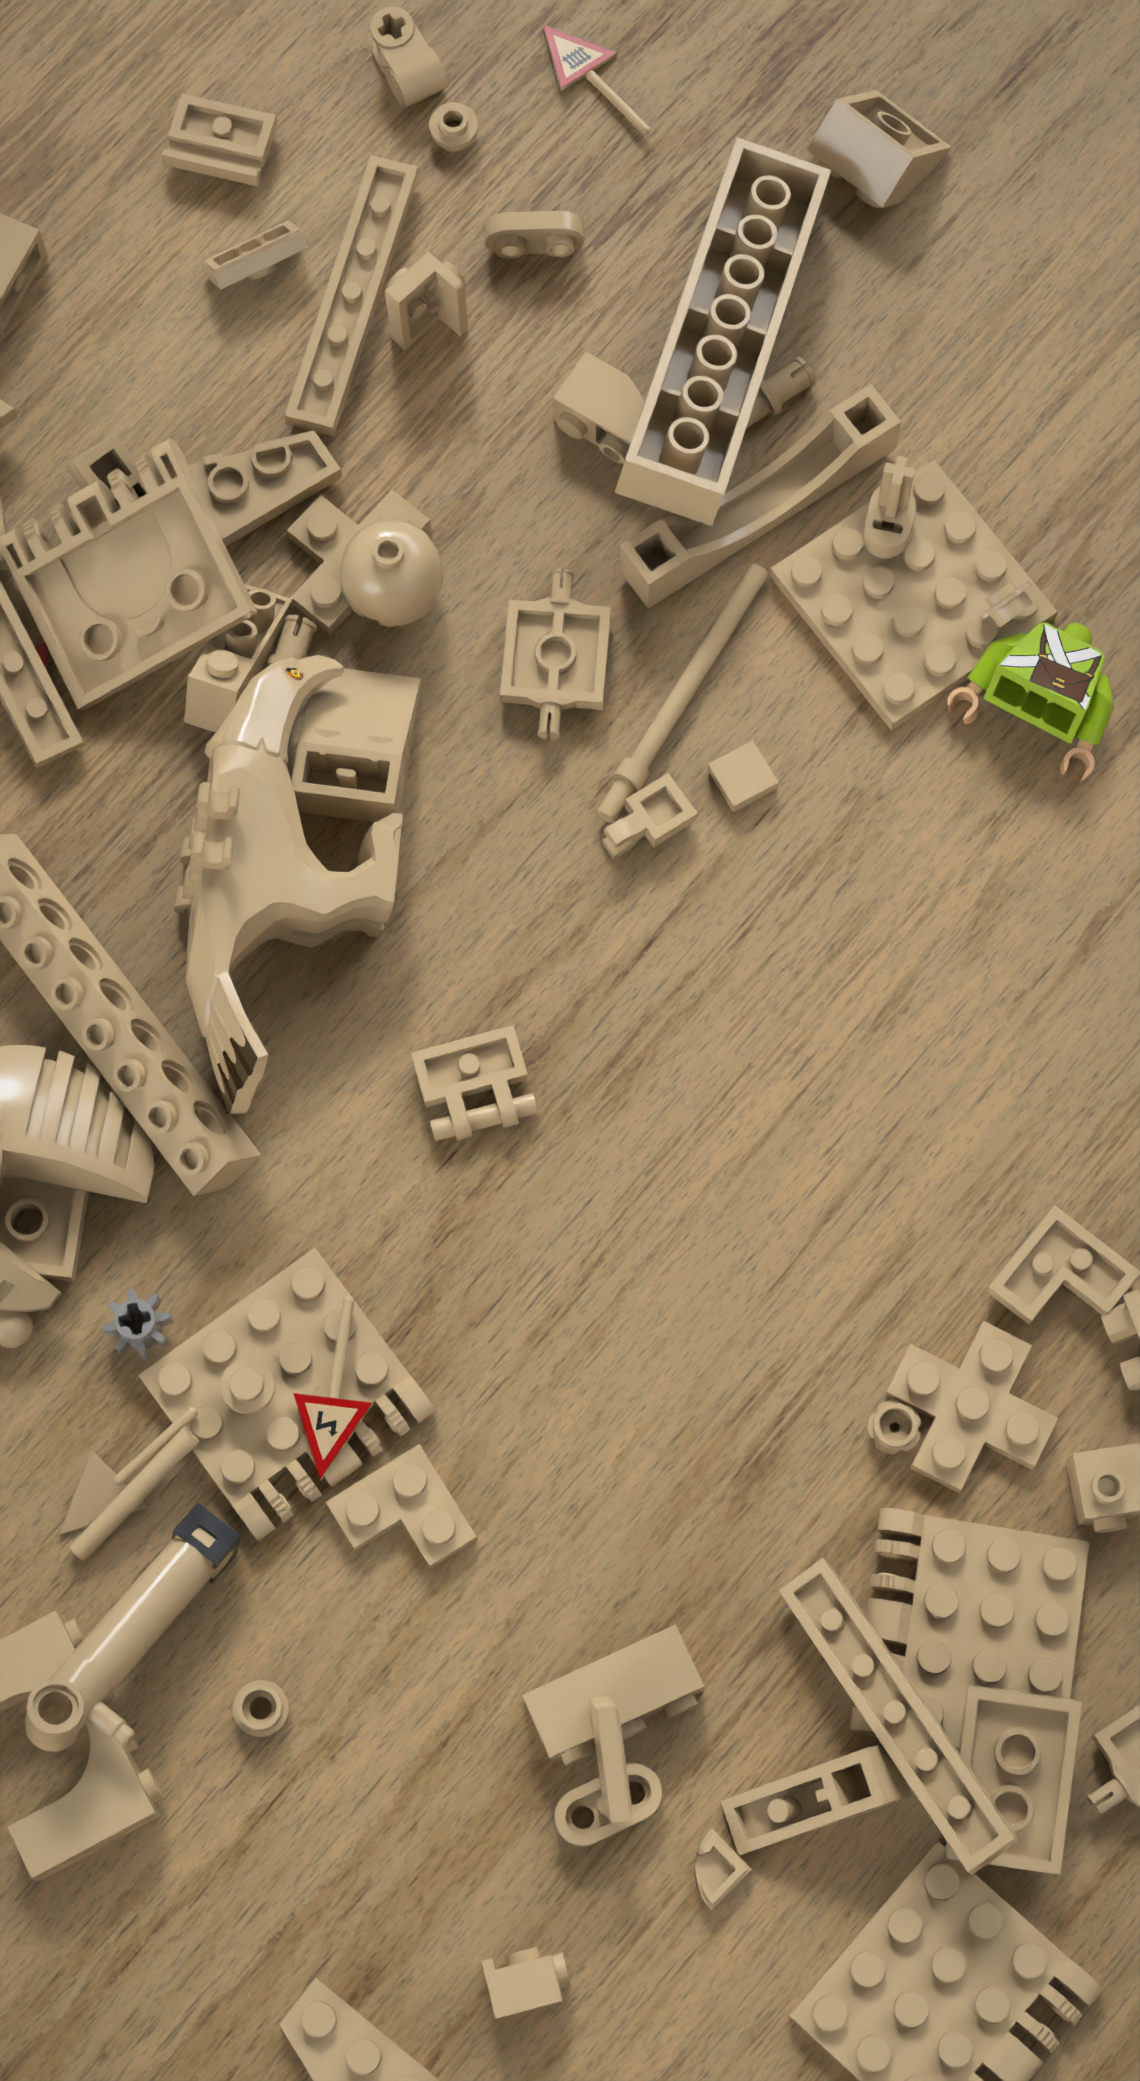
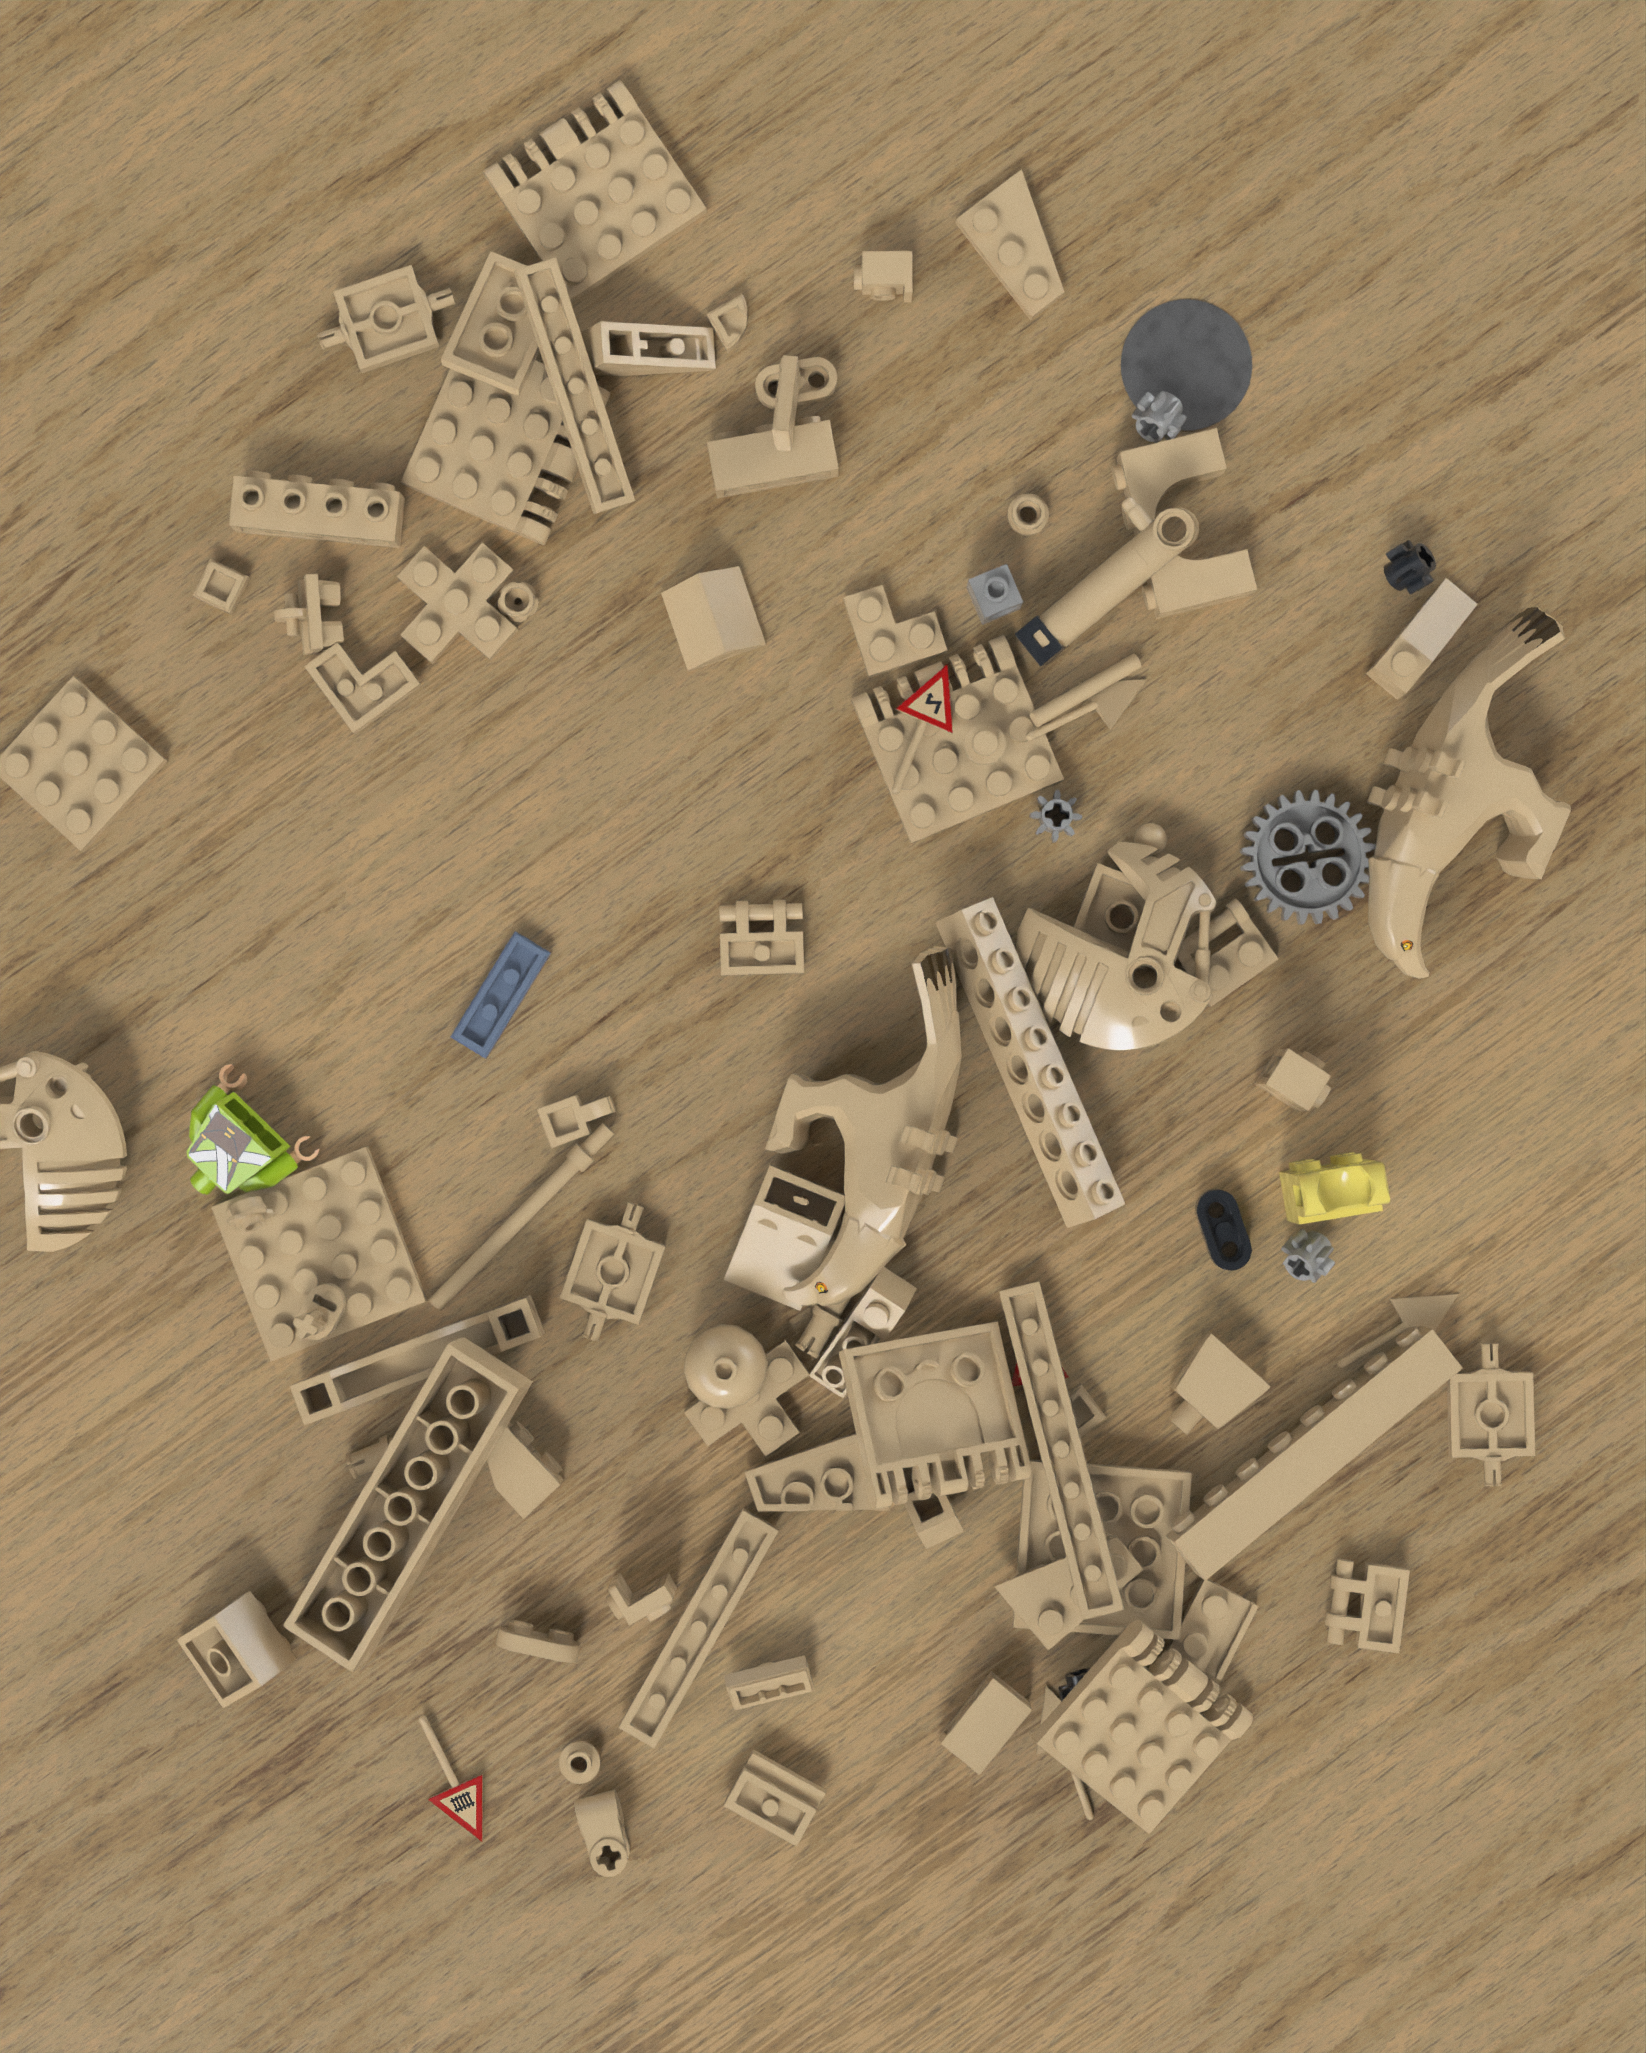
camera: 165 degrees left, 15 degrees up
(94, 1971) = (1192, 354): none -> flat silver sticker
(113, 1879) = (1159, 416): none -> light grey gear
(279, 1586) = (994, 594): none -> light grey brick
(637, 1469) = (713, 617): none -> tan slope
(743, 776) = (493, 1135): tan tile -> none
(780, 942) = (500, 995): none -> sand blue tile

